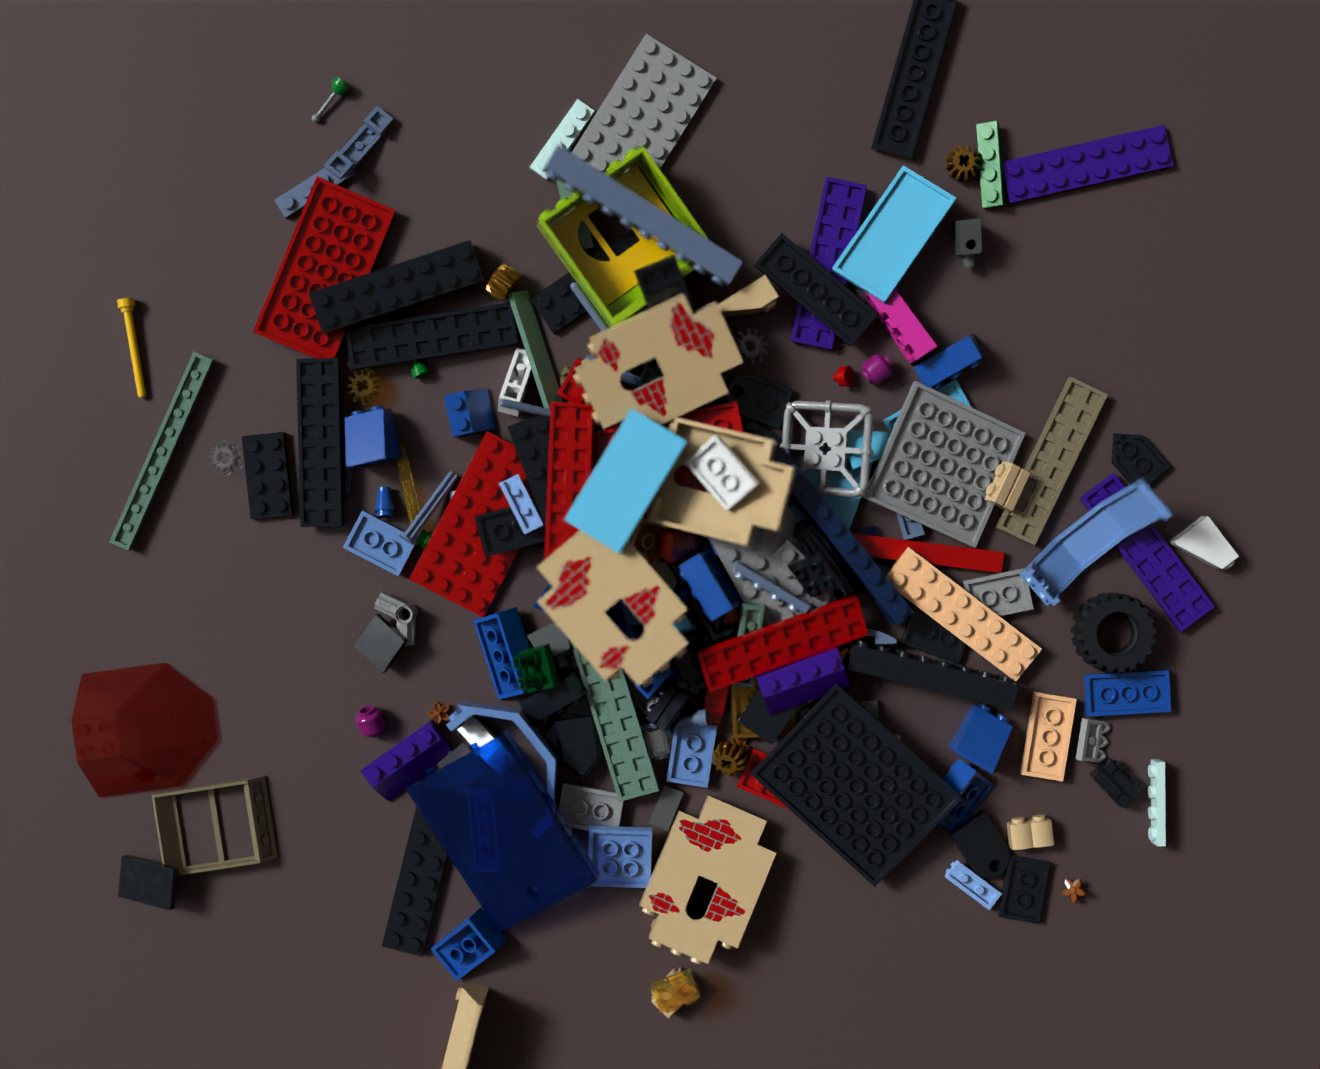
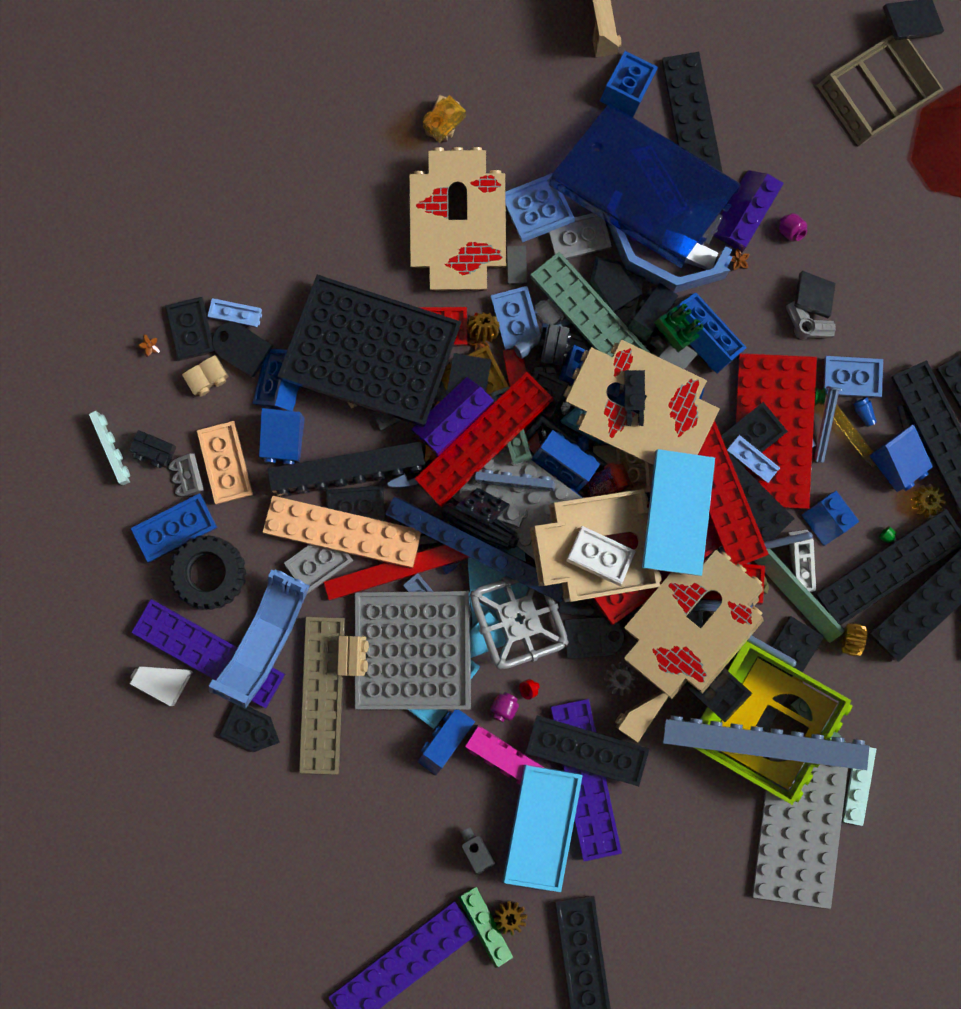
camera: 160 degrees right, 5 degrees down
(616, 618) = (634, 395): none -> black hinge

